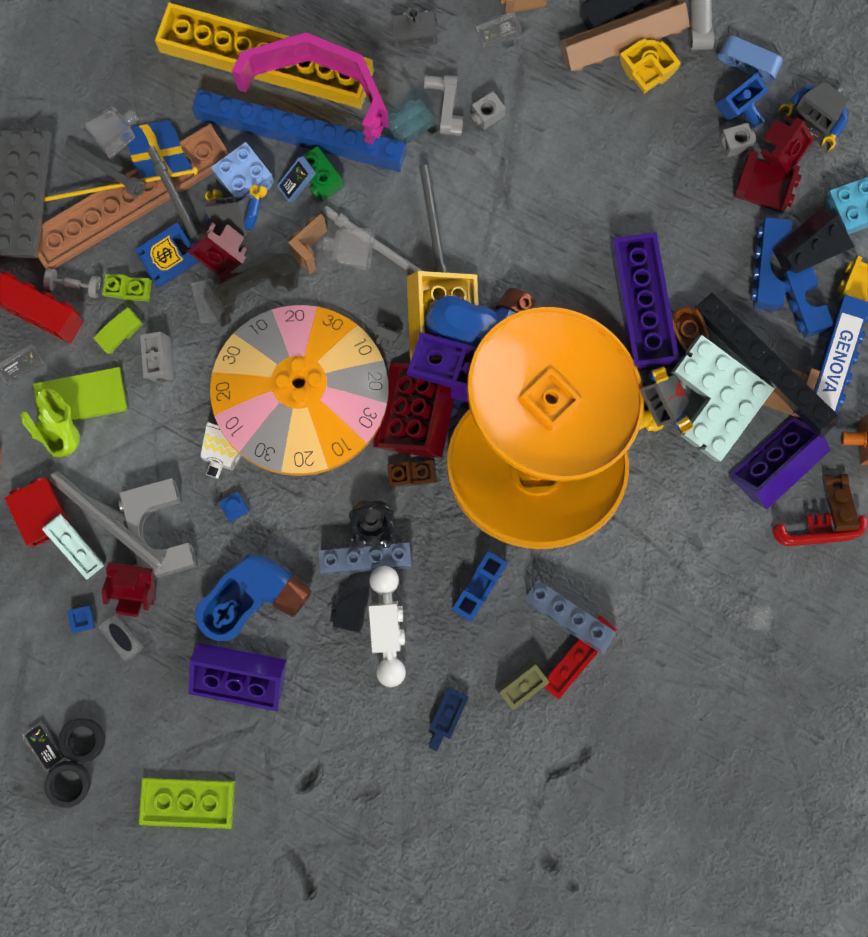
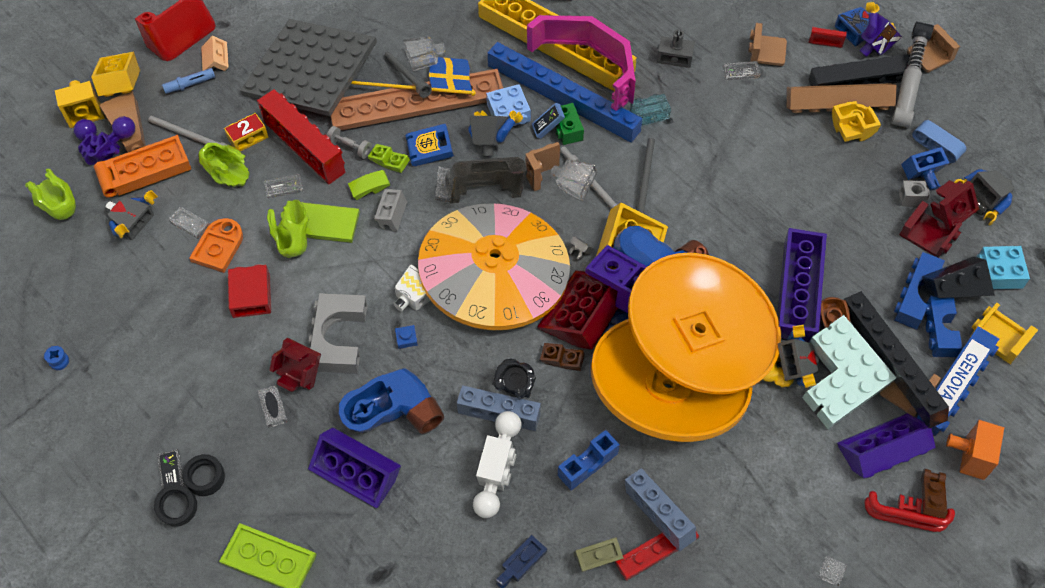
camera: 15 degrees right, 20 degrees down
(73, 546) = (265, 322): light aqua tile -> none
(81, 619) = (246, 381): blue plate -> none
(107, 521) = (301, 312): light grey axle -> none
(161, 169) = (448, 83): dark grey bar -> none
(219, 252) = (469, 145): dark red panel -> none
(351, 611) = (470, 446): black slope -> none
(450, 123) = (682, 118): light grey beam -> none
(491, 103) = (715, 118): light grey brick -> none

